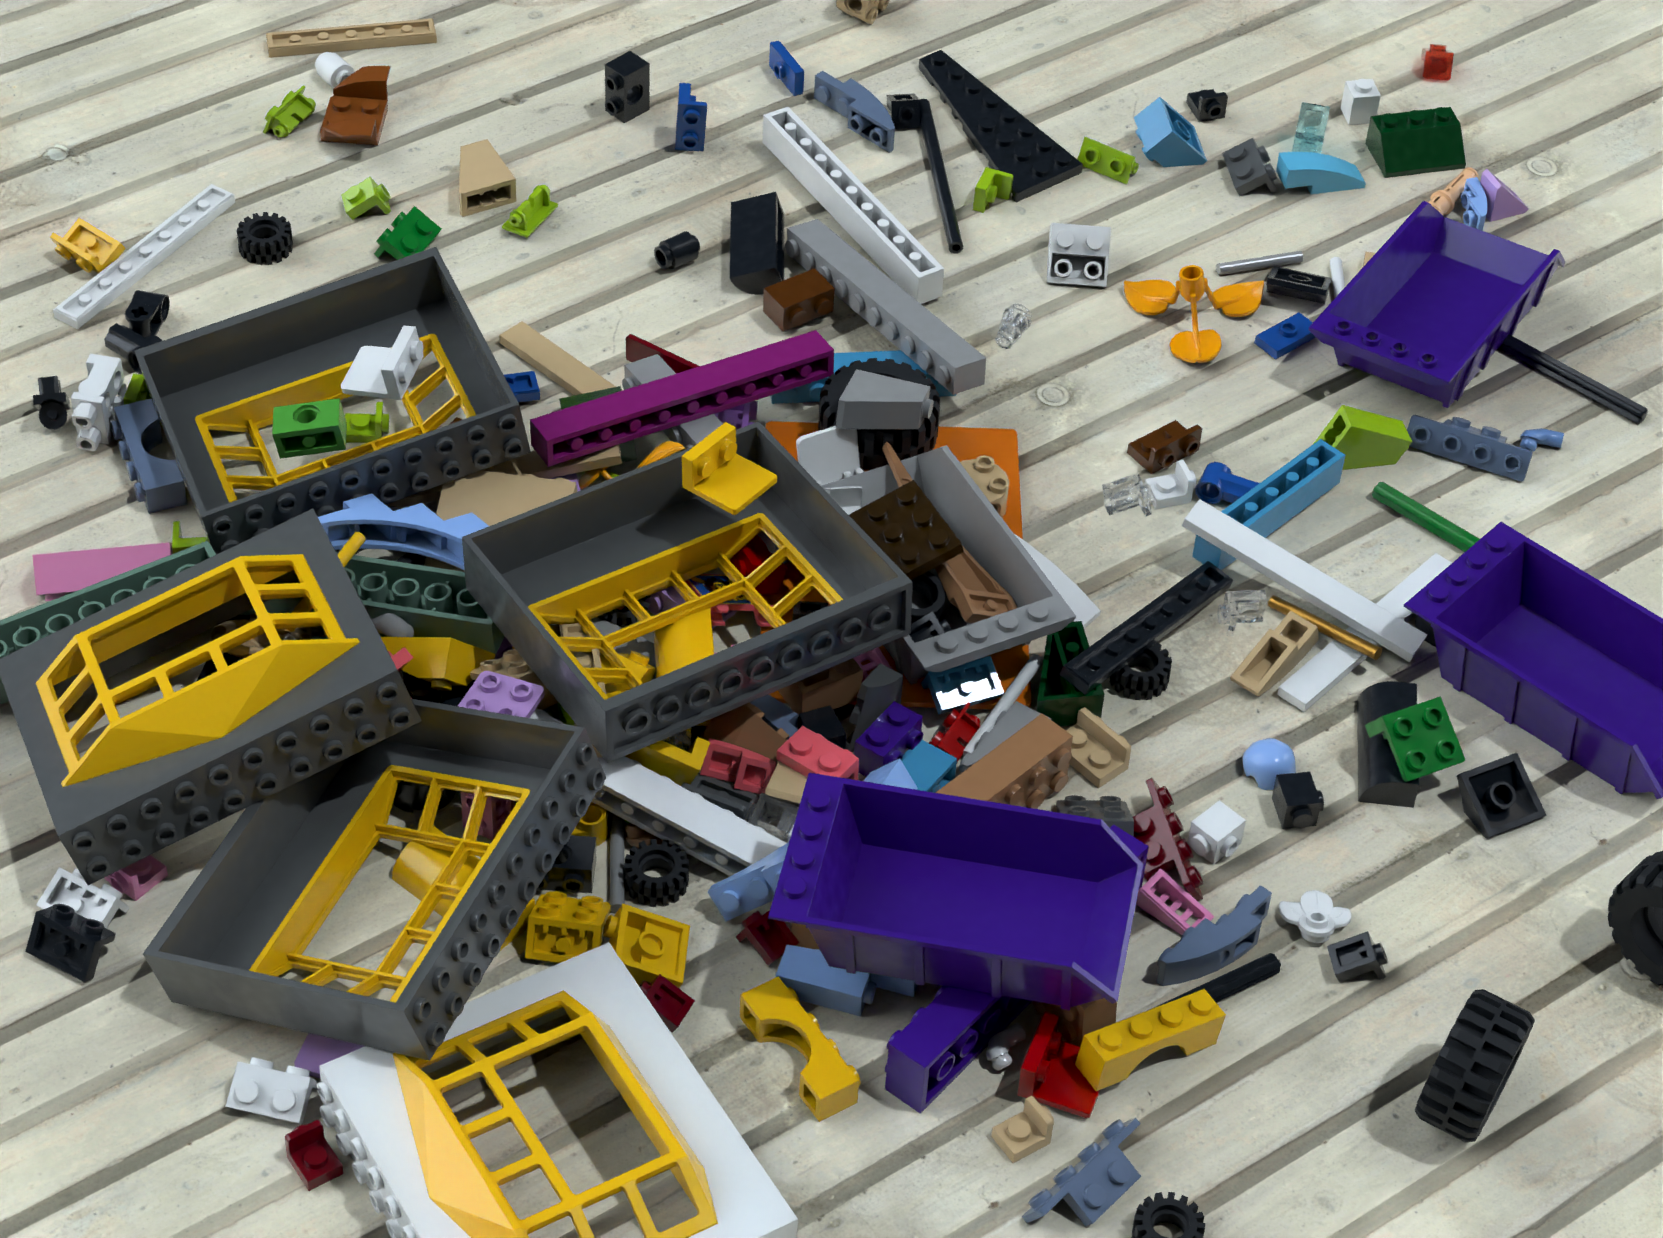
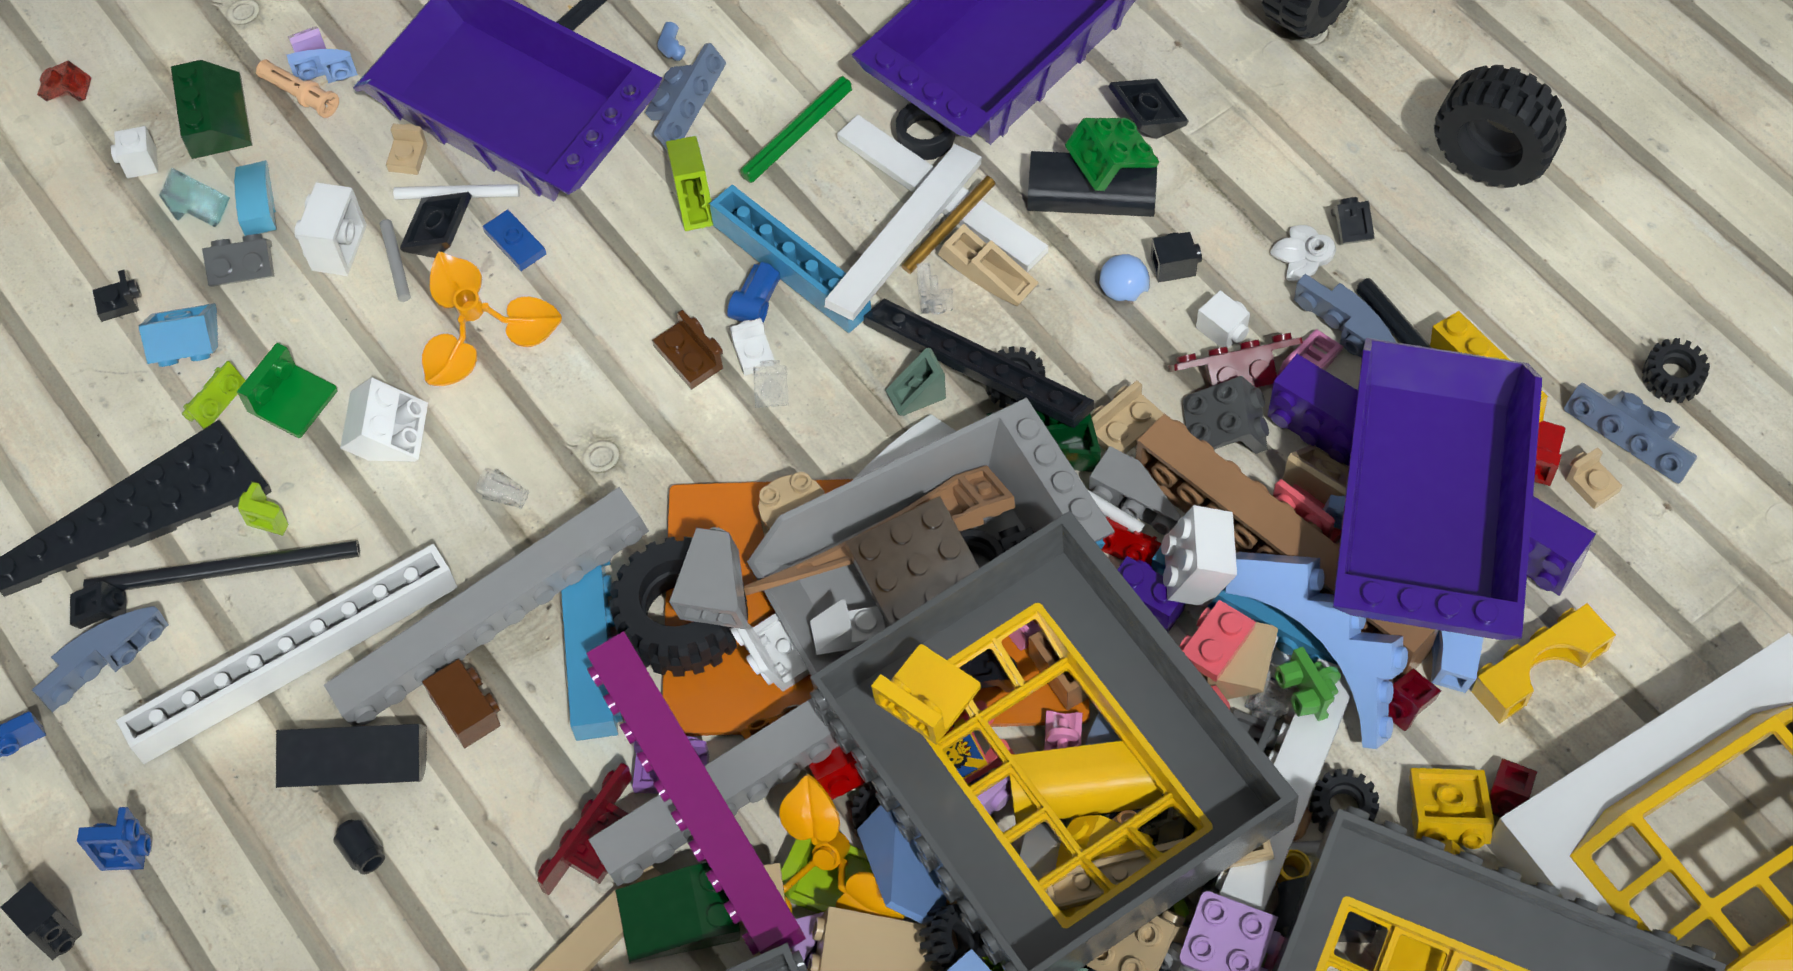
camera: 85 degrees left, 15 degrees up
(765, 826) = (1314, 684): none -> bright green hips
(907, 736) = (1199, 556): none -> white brick
(1111, 195) = (285, 393): none -> green bracket
(1128, 597) = (918, 384): none -> sand green slope
(1278, 209) = (330, 229): none -> white brick

